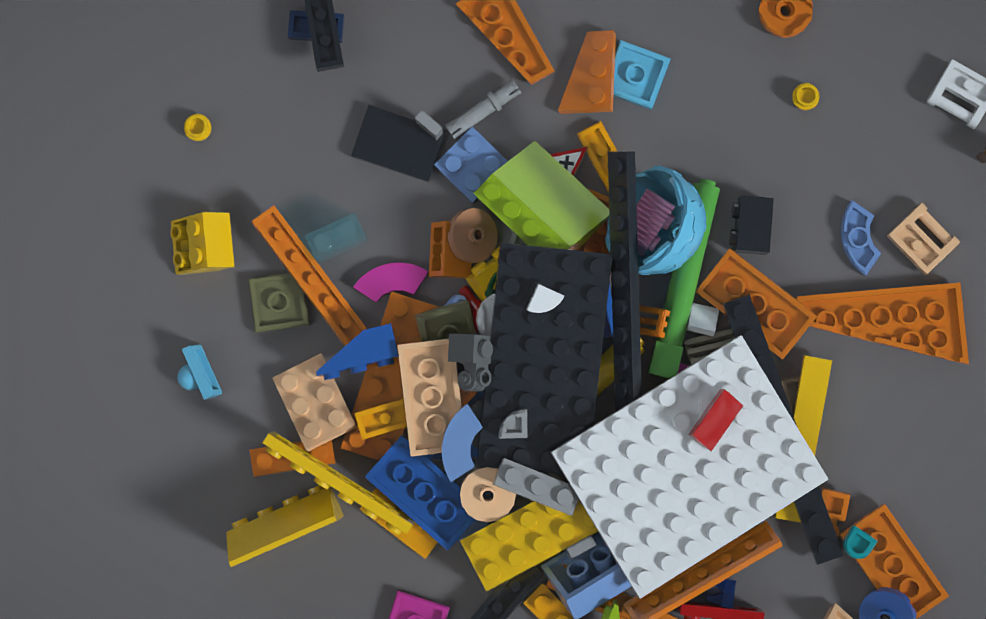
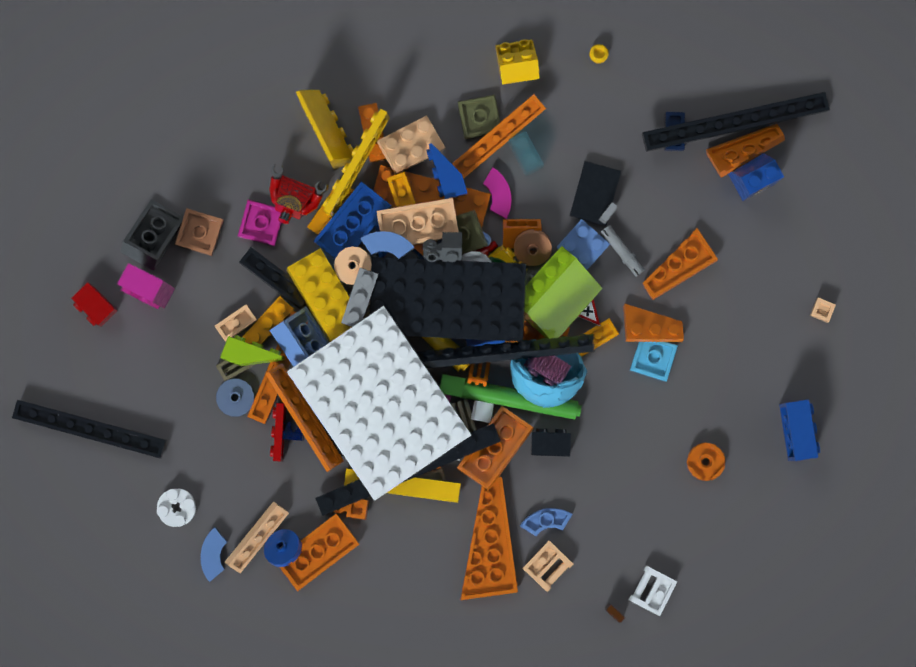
camera: 85 degrees right, 0 degrees up
(198, 373) = (427, 64): medium azure tile -> none
(381, 577) = (293, 197): none -> red torso
(514, 425) = (400, 280): light grey tile -> none
(543, 299) = (488, 294): white tile -> none
(580, 547) = (320, 332): light grey tile -> none
(715, 419) = (411, 418): red slope -> none
(805, 96) = (644, 478): yellow plate -> none
(858, 543) = (330, 525): teal tile -> none

